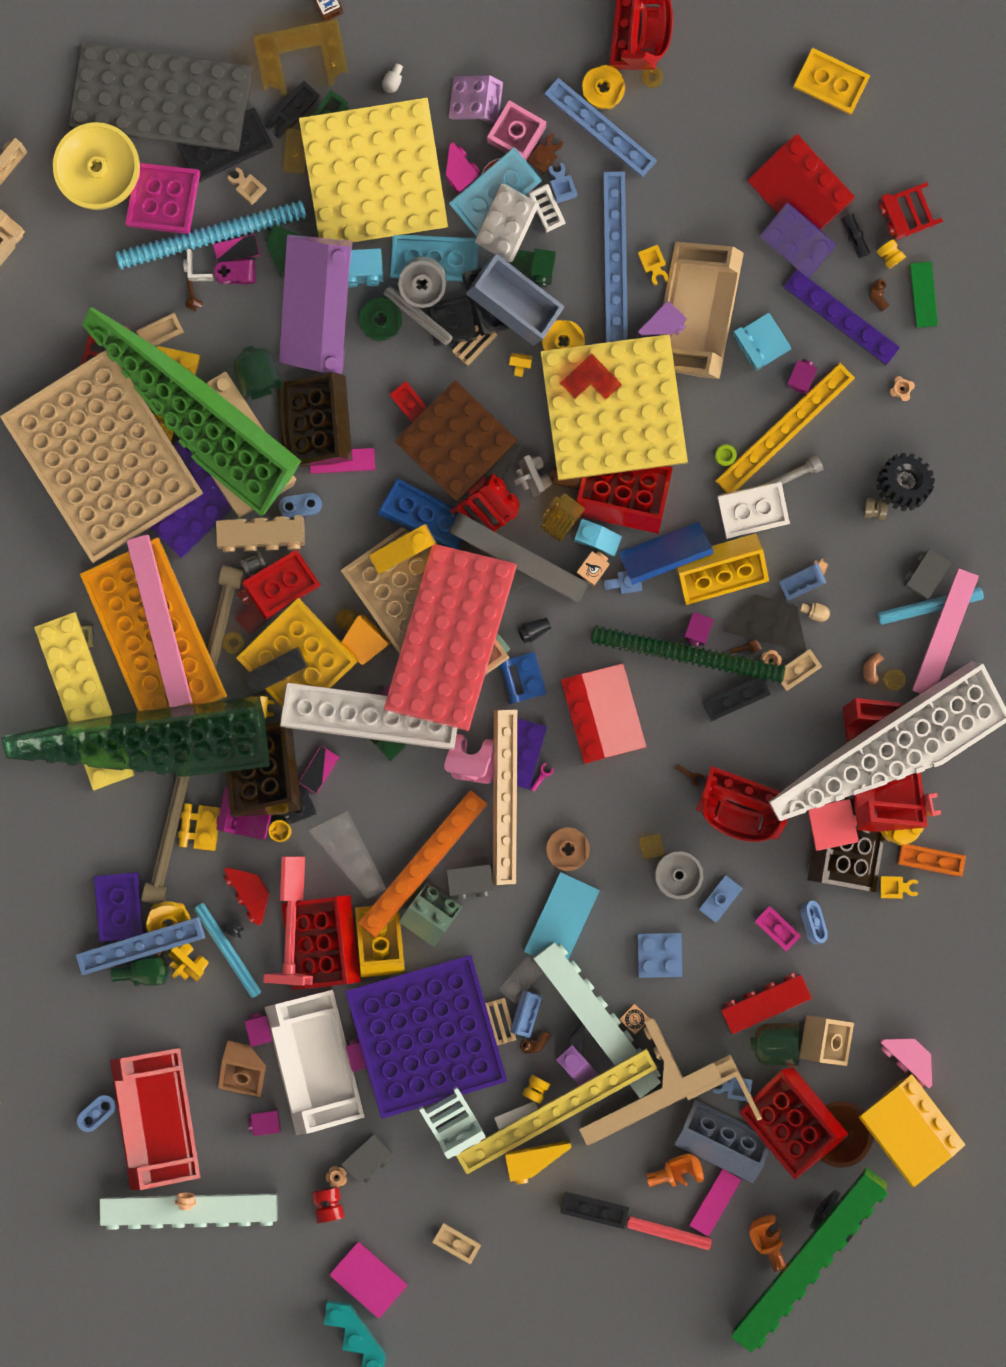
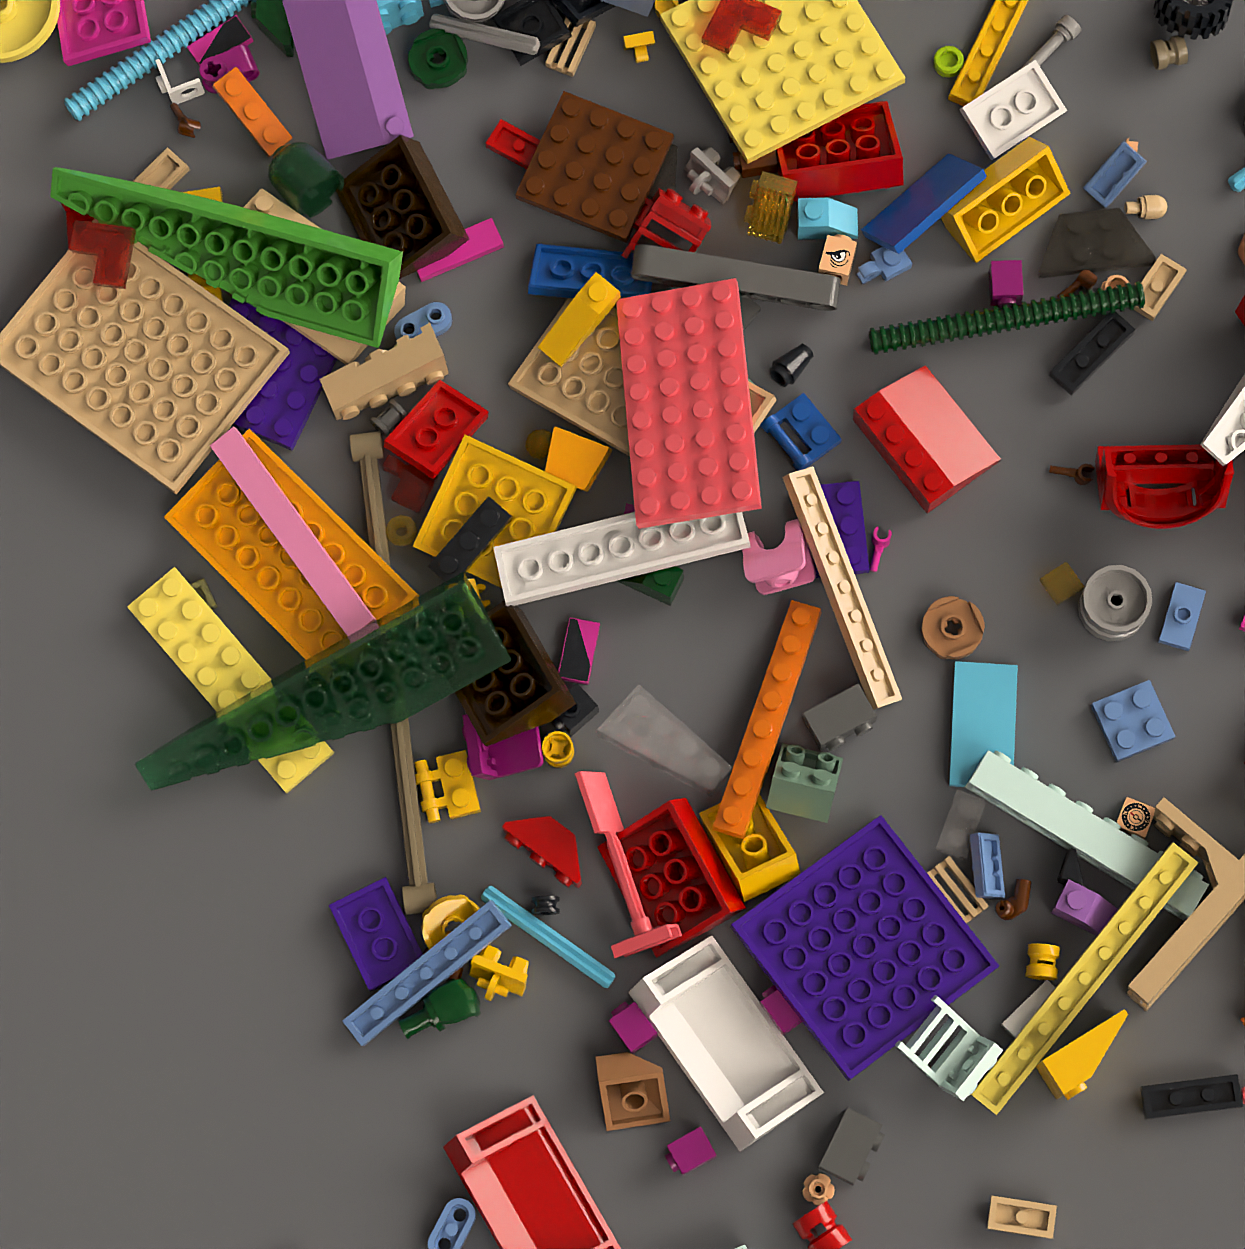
camera: 15 degrees left, 10 degrees down
(110, 377) = (112, 246): none -> clear red plate
(240, 311) = (252, 111): none -> orange plate

